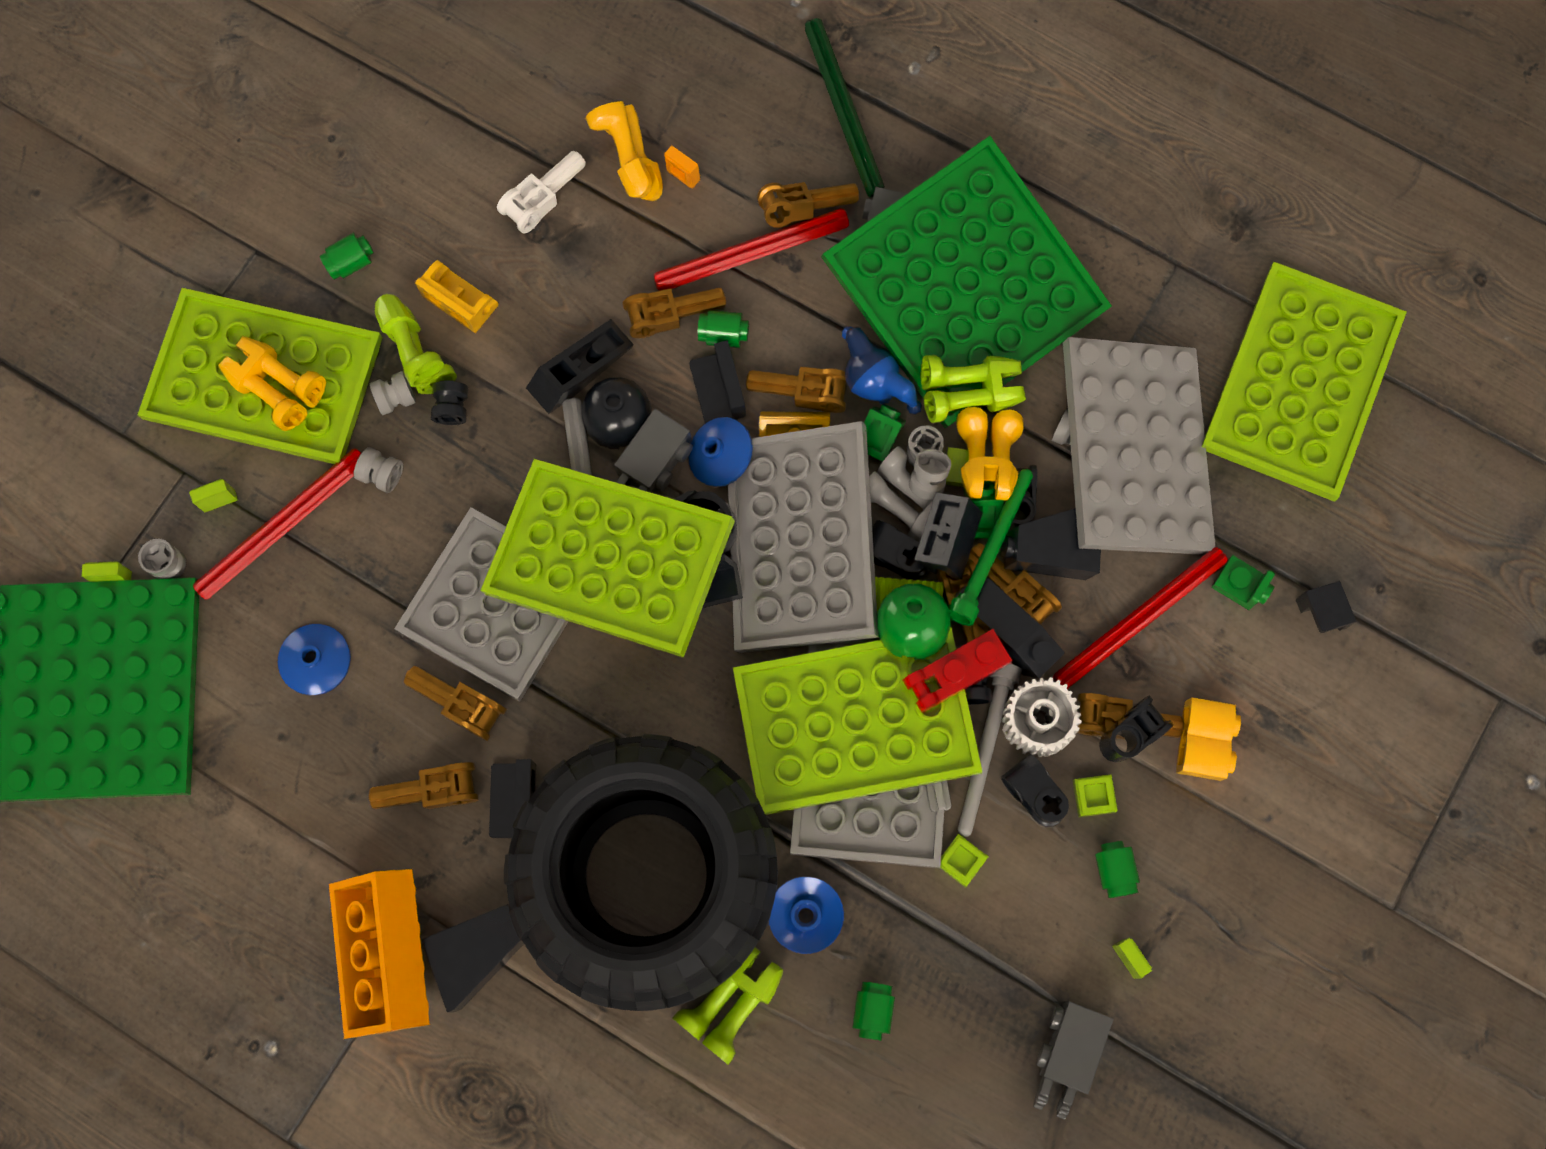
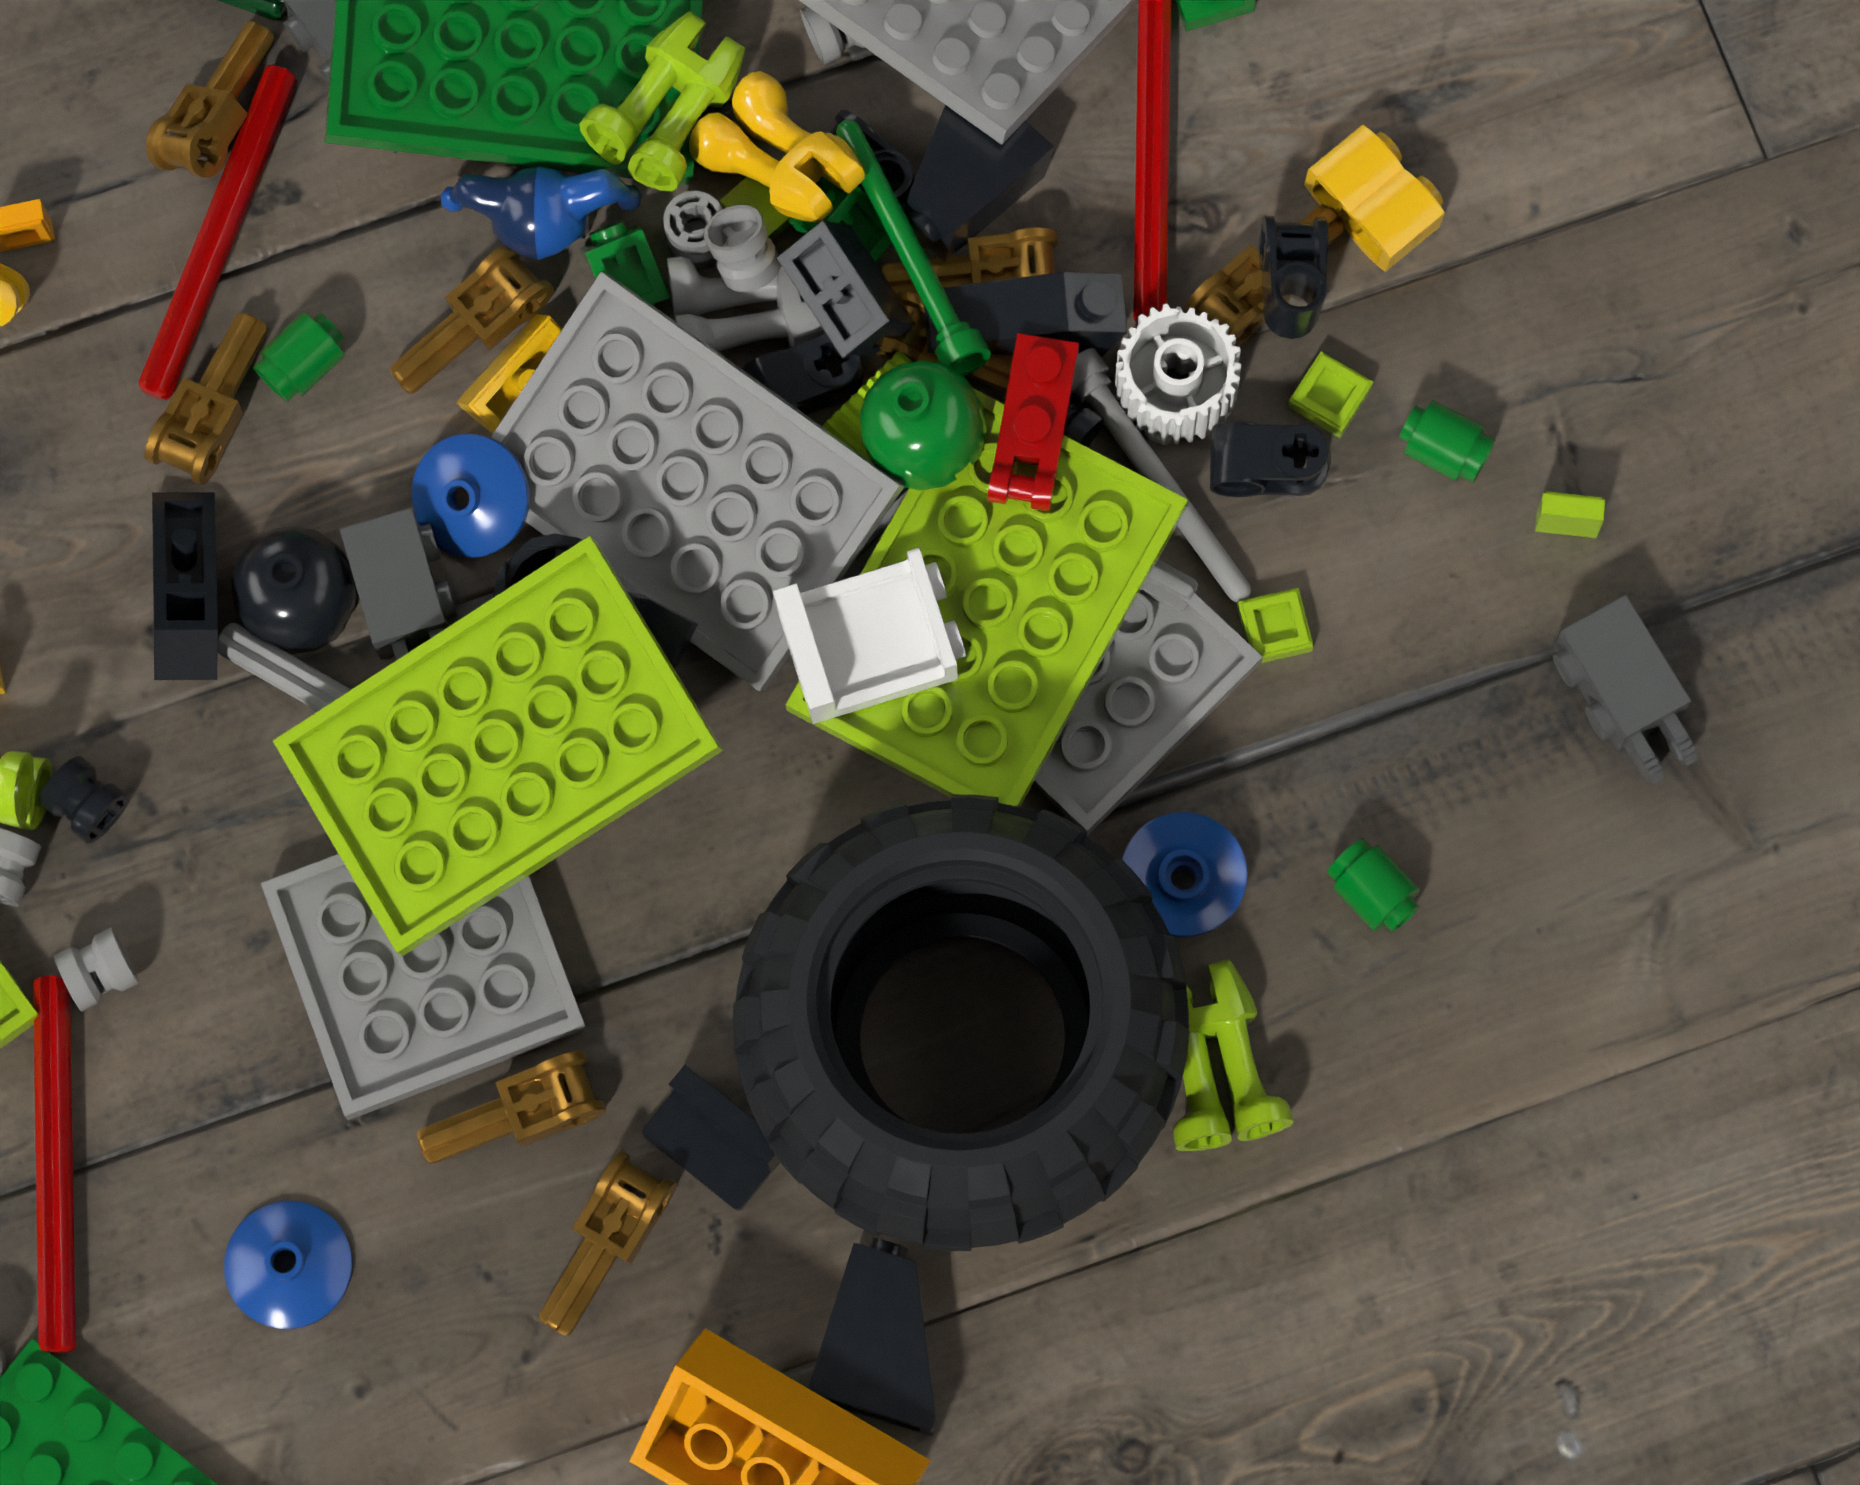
camera: 50 degrees left, 0 degrees up
(718, 384) = (372, 424): black panel -> none
(792, 678) = (870, 637): none -> white panel

